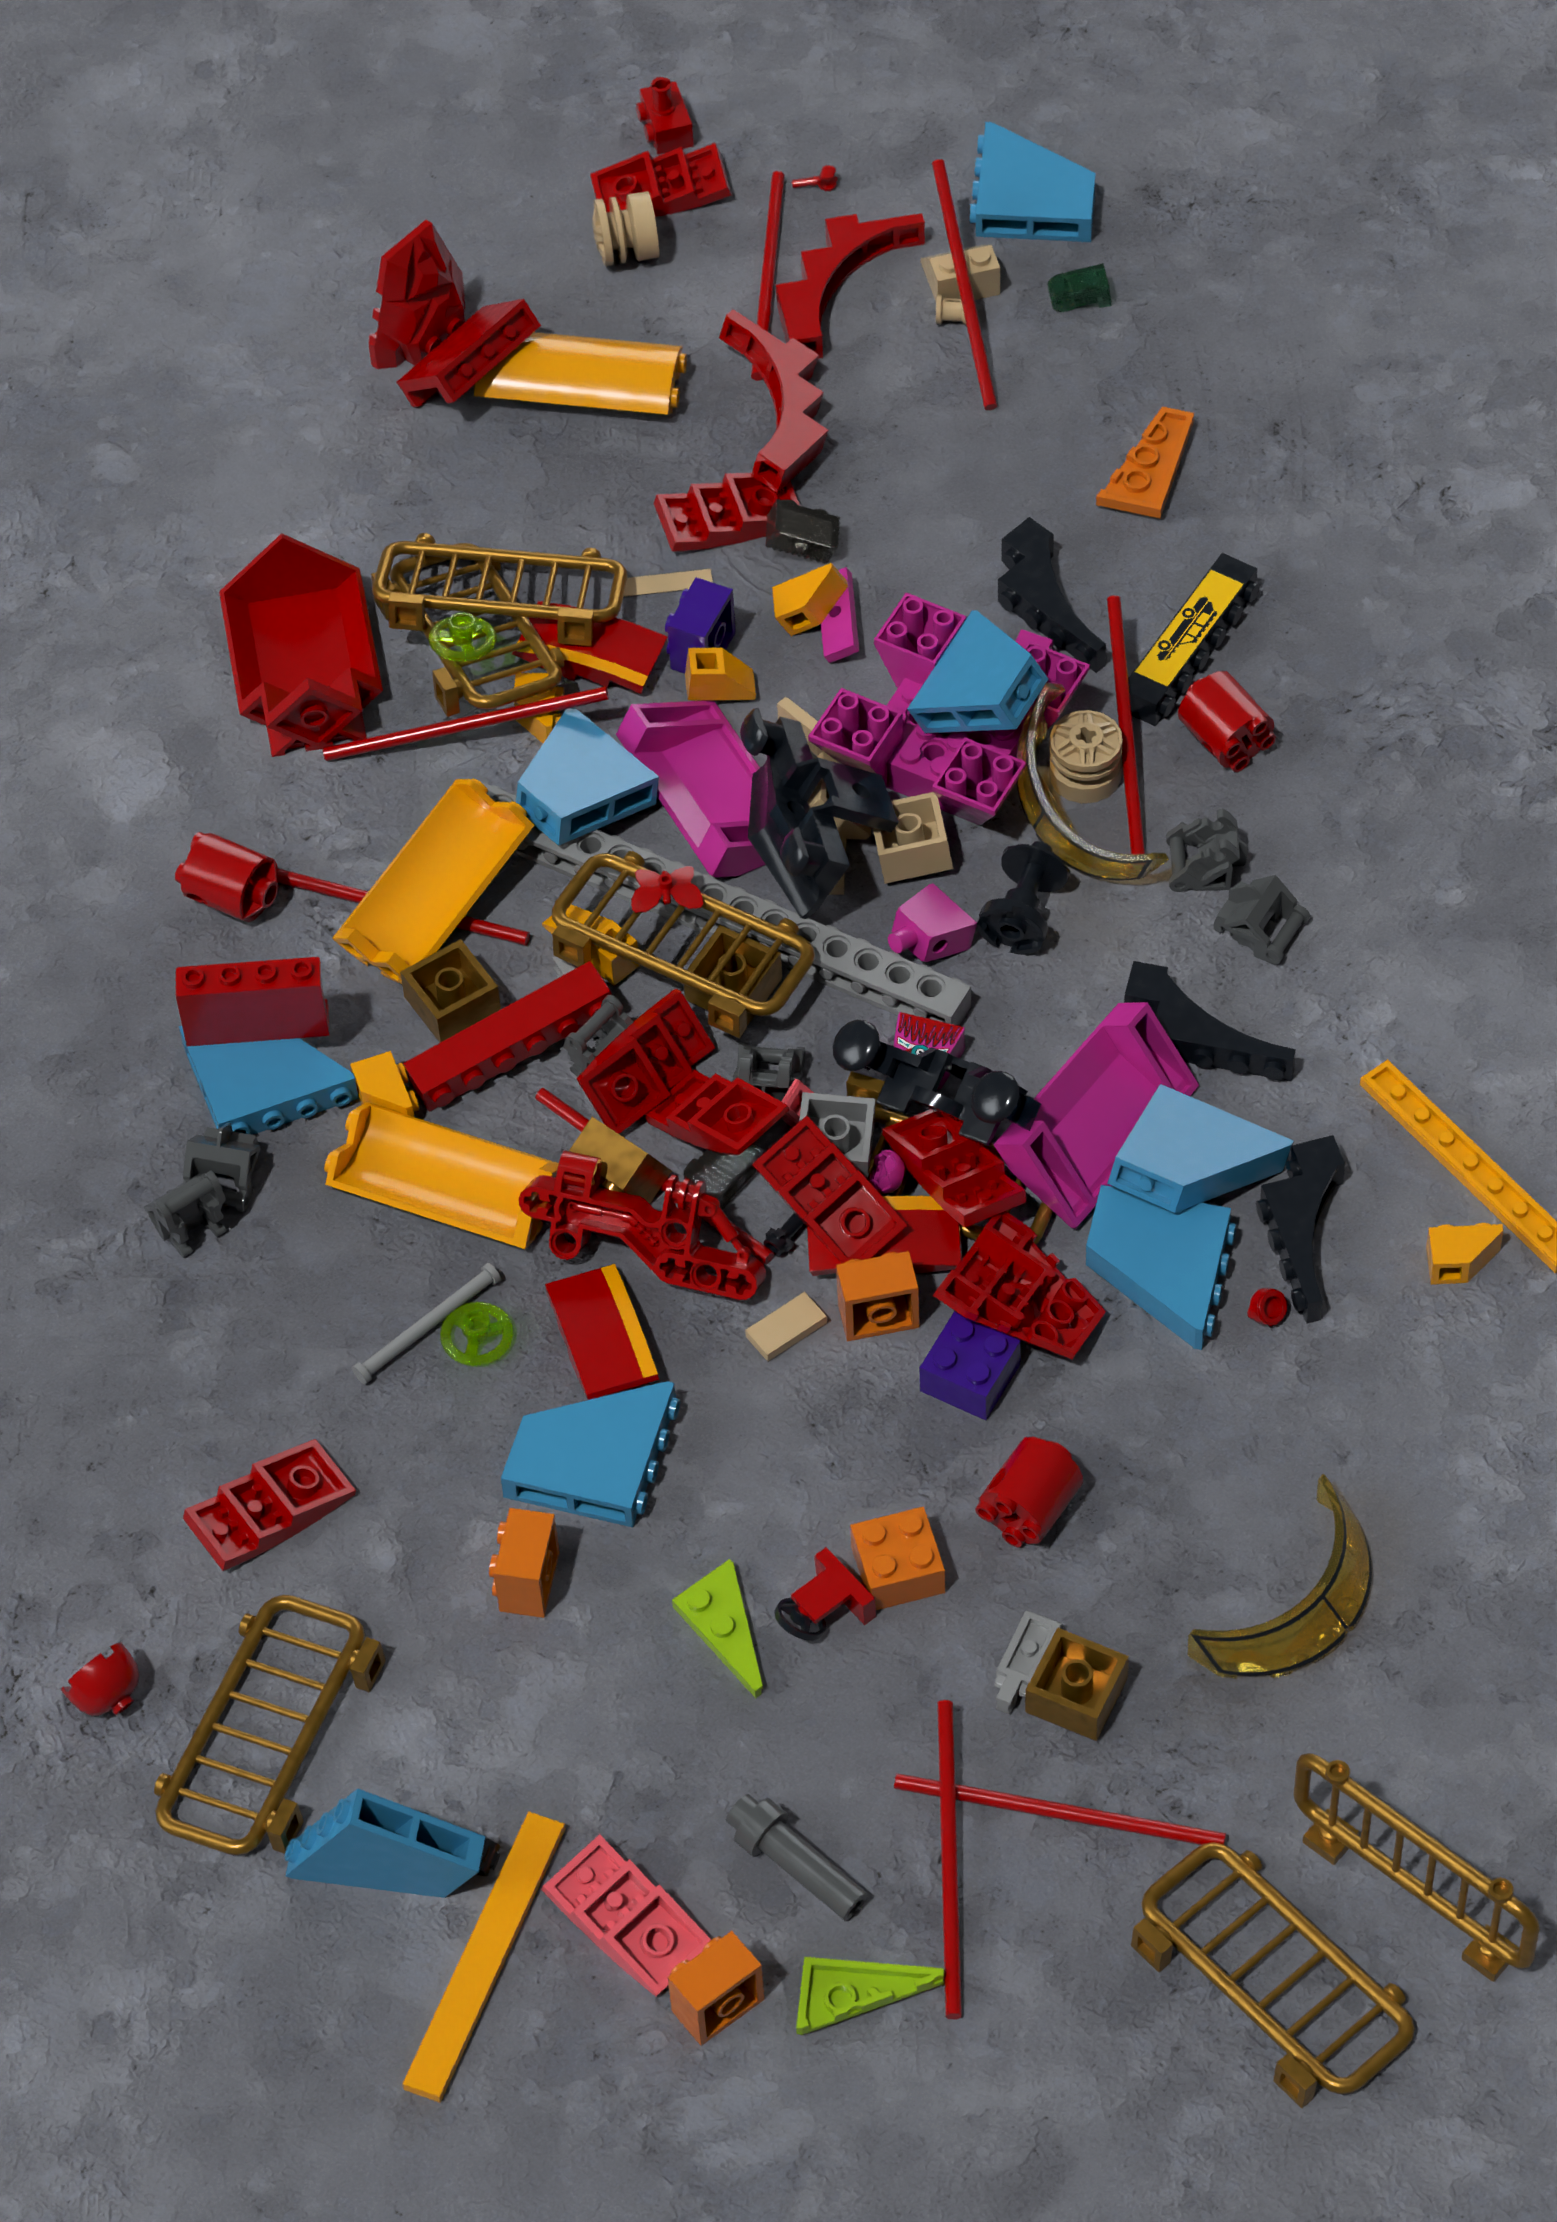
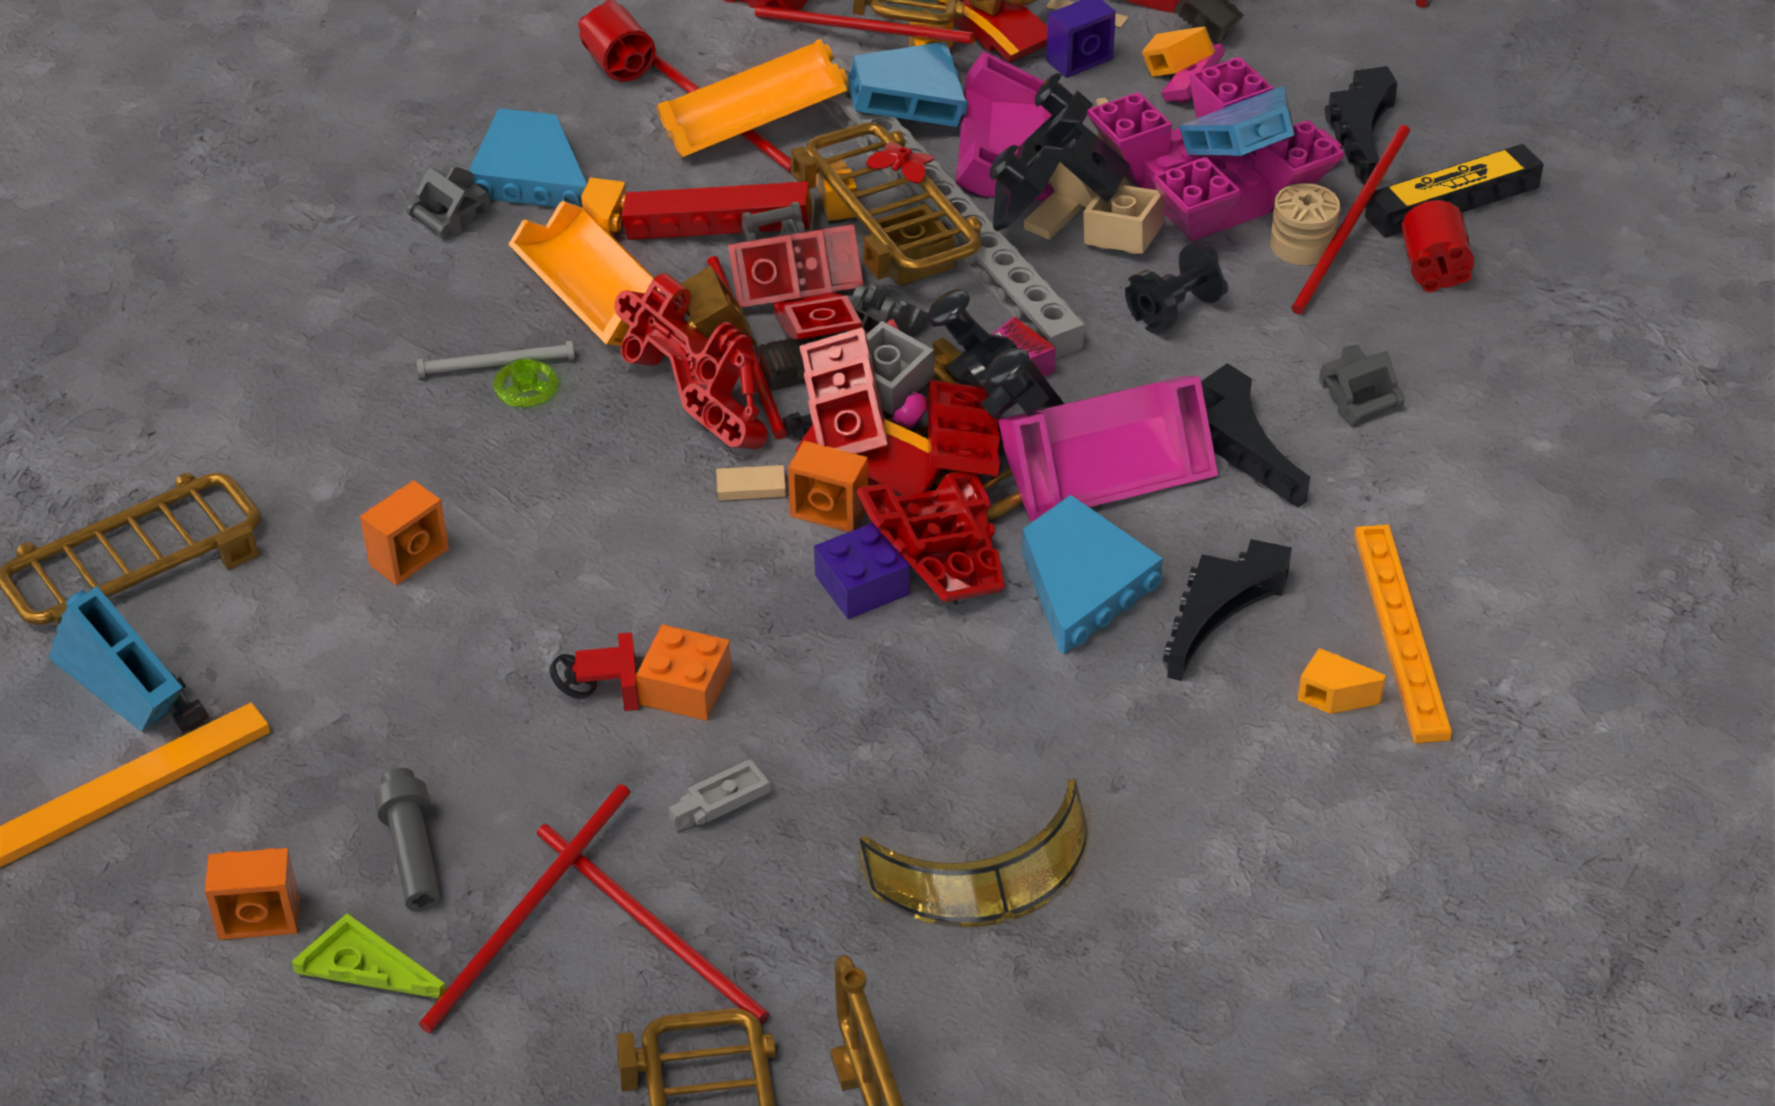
camera: 30 degrees right, 10 degrees down
(104, 1683) = (49, 463): red cylinder -> none
(187, 1207) = (395, 212): dark grey piece -> none
(252, 1001) = (544, 100): red panel -> none
(269, 1504) = (277, 417): red slope -> none
(450, 990) = (702, 161): pearl gold brick -> none
(593, 1454) = (529, 492): dark azure slope -> none
(601, 1332) = (608, 419): red slope -> none
(625, 1914) = (249, 799): coral slope -> none
(717, 676) = (1073, 64): light orange slope -> none
(718, 1617) = (516, 651): lime wing -> none
(931, 926) = (1089, 278): dark pink torso -> none
(1030, 1491) = (827, 673): red cylinder -> none
(1050, 821) = (1241, 243): clear yellow windscreen -> none
(1076, 1684) = (739, 830): pearl gold brick -> none
(1150, 467) = (1514, 80): orange wing -> none
(1193, 1152) = (1160, 503): dark azure slope -> none
(1217, 853) = (1351, 322): dark grey piece -> none
(1267, 1306) = (1140, 645): red tile -> none

